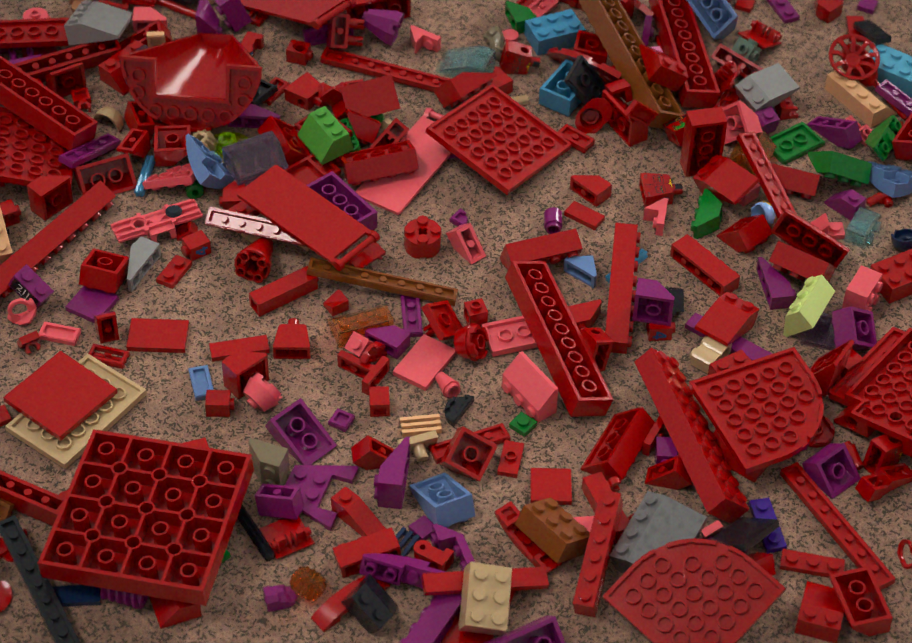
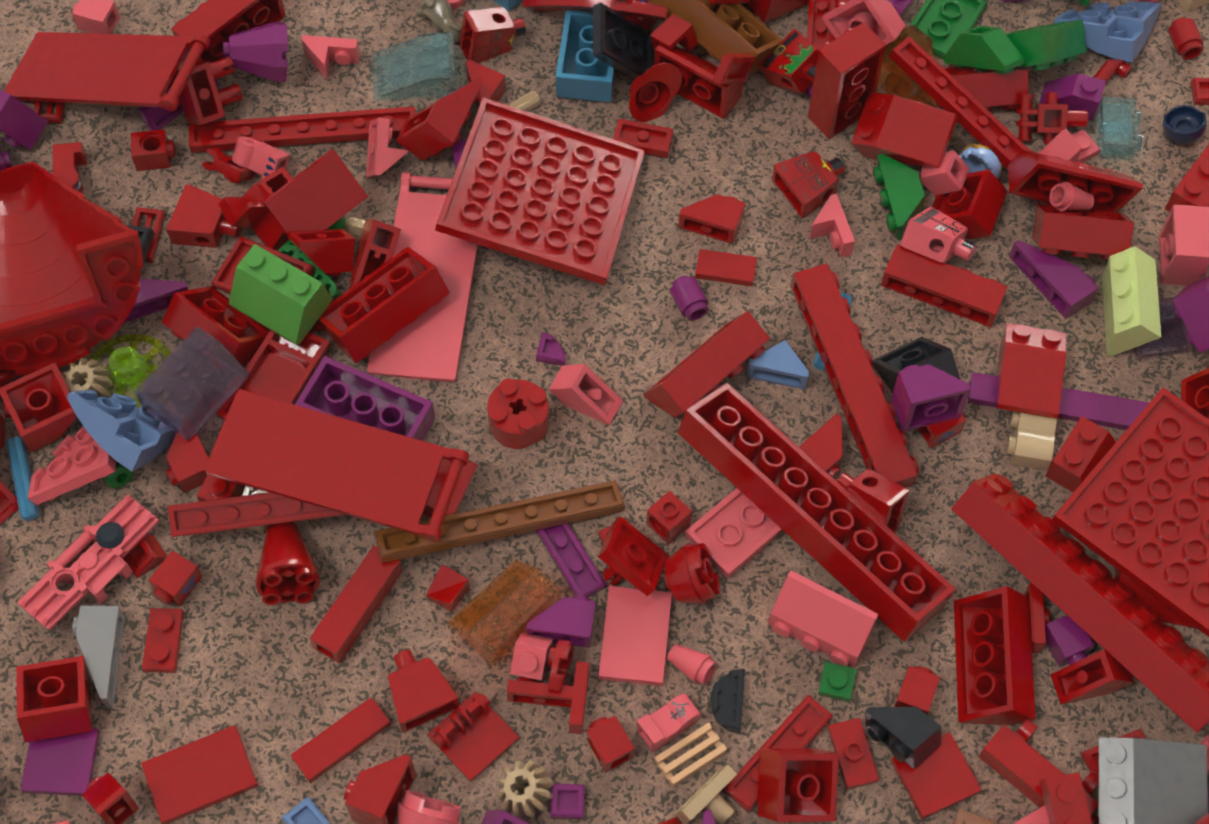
camera: 25 degrees left, 15 degrees up
(309, 371) = (473, 736): none -> red hinge
(321, 402) = (515, 784): none -> tan gear
(336, 74) = (225, 165): none -> red plate
(353, 72) = (259, 156): none -> coral leg
(417, 404) = (667, 722): none -> coral leg
(422, 96) = (379, 155): none -> coral slope
(543, 455) = (905, 731): none -> black slope
(563, 443) = (917, 688): none -> red brick
(718, 241) = (937, 236): none -> coral torso
(740, 212) = (948, 177): none -> coral brick
(798, 157) = (985, 50): none -> green slope
(802, 242) = (1070, 198): none -> coral cone
(821, 205) = (1049, 117): none -> red piece

